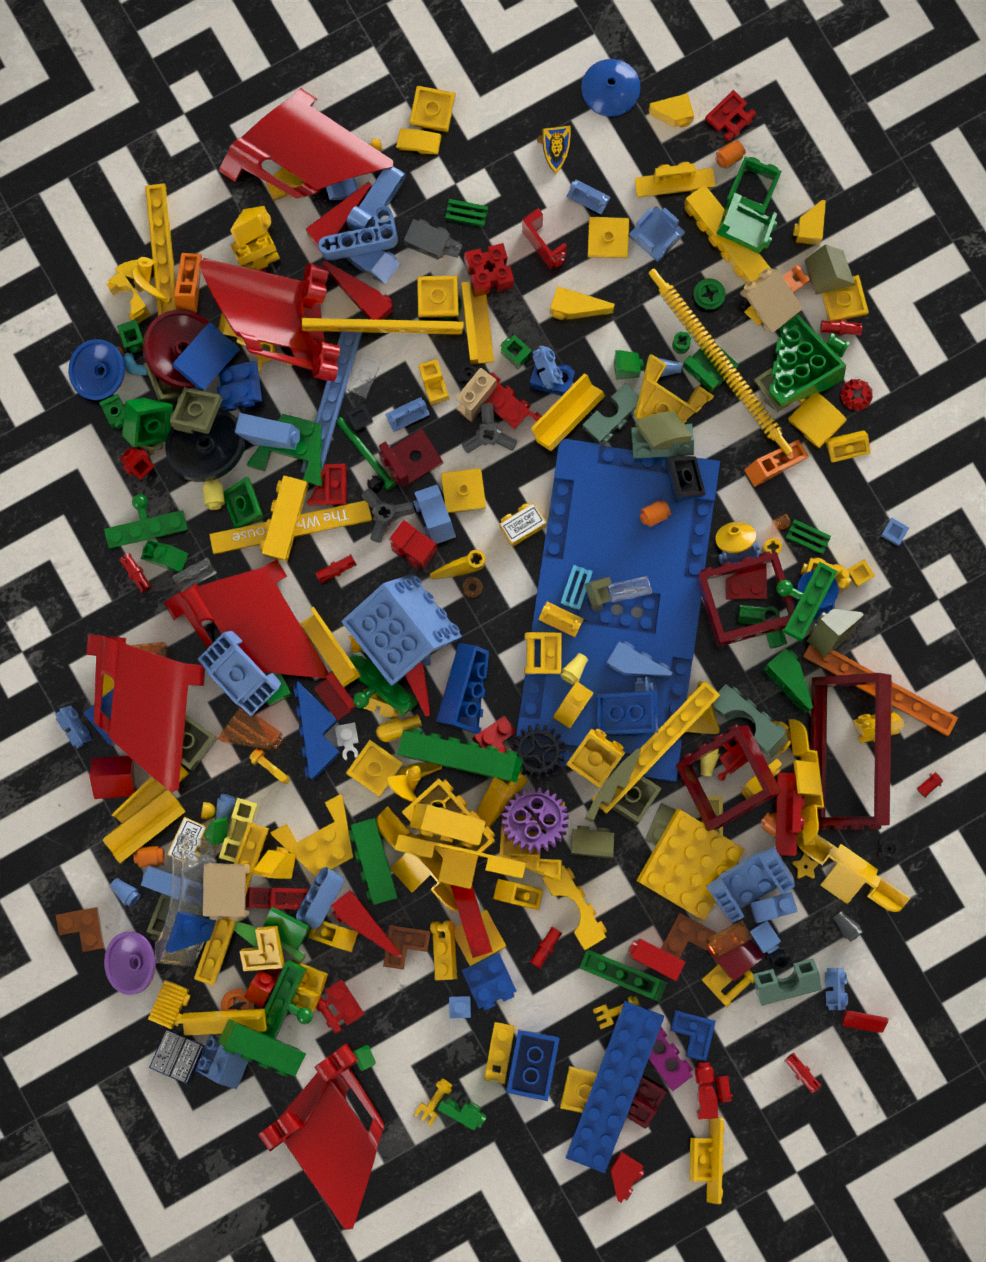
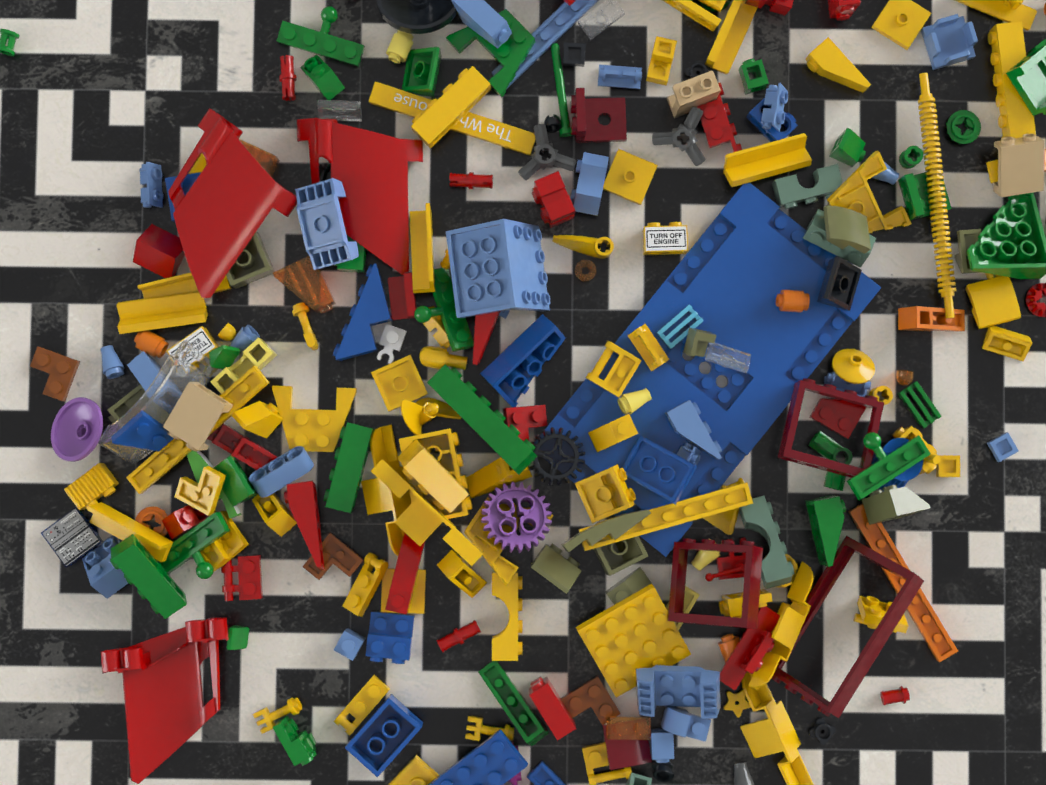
camera: 25 degrees right, 5 degrees up
(333, 487) = (513, 103): red wing -> none

